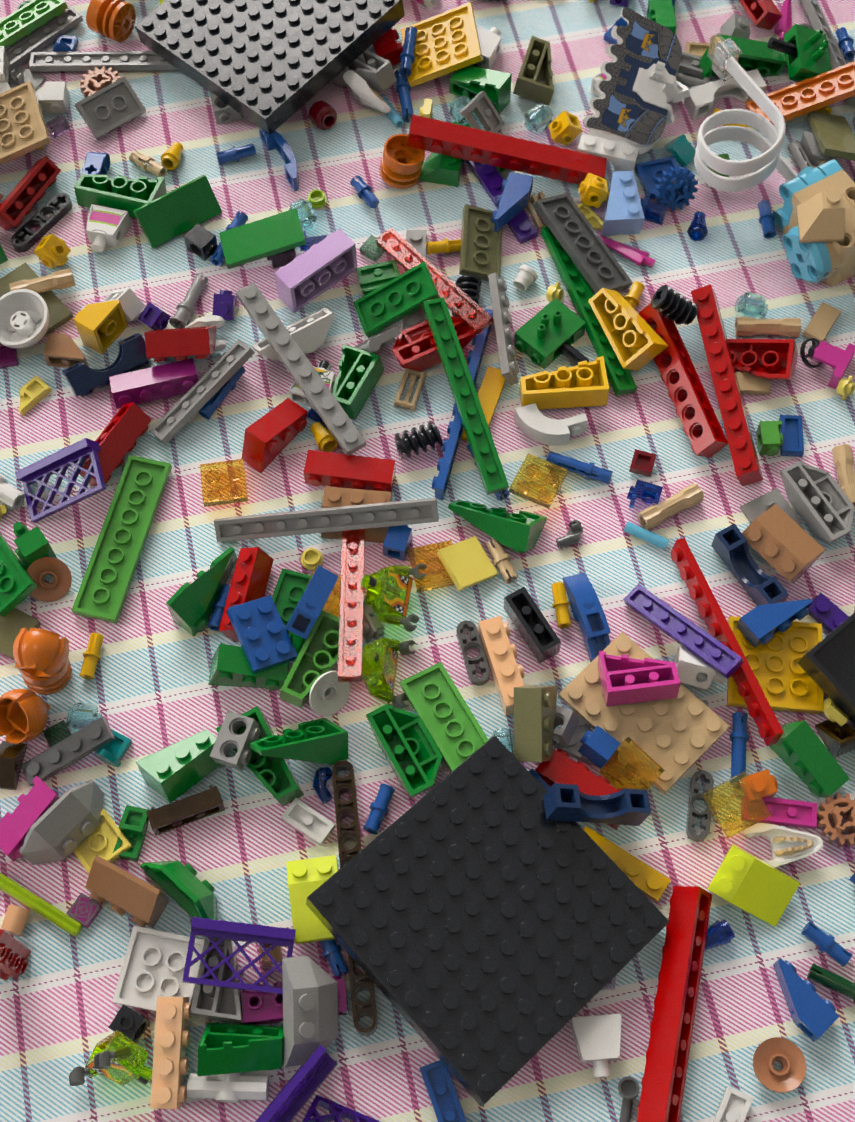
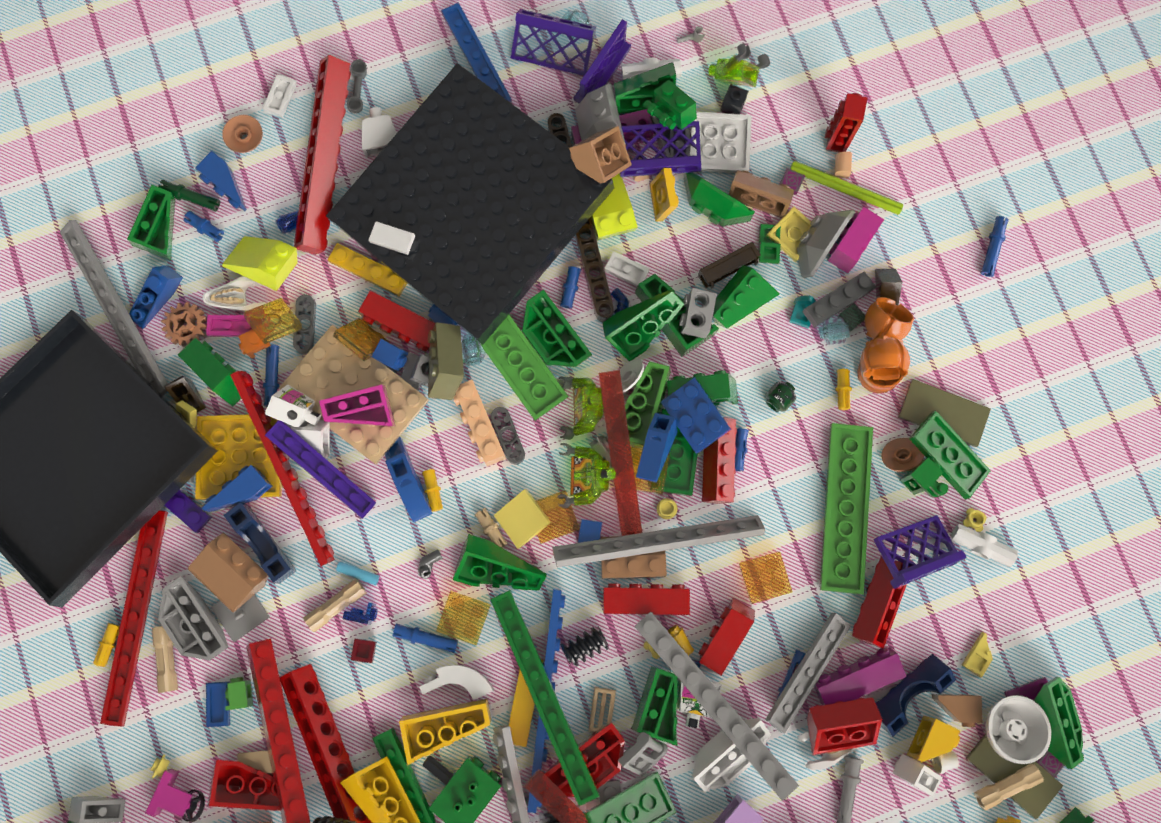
camera: 170 degrees right, 15 degrees up
(154, 317) = (879, 761): dark purple bracket -> none
(163, 655) = (780, 396): none -> dark green head
(170, 1053) = (698, 81): light nougat brick -> none
(193, 602) = (760, 446): green wedge -> none
(209, 1003) = (672, 106): none -> green brick
(224, 305) = (811, 789): dark purple bracket -> none
(246, 898) = (663, 194): none -> yellow plate
(315, 930) = (601, 155): none -> medium nougat slope
(532, 625) = (456, 462): black brick -> none
(587, 869) = (391, 238): none -> white tile
(624, 807) = (373, 292): dark blue arch -> none
(711, 691) = (292, 407): none -> white torso

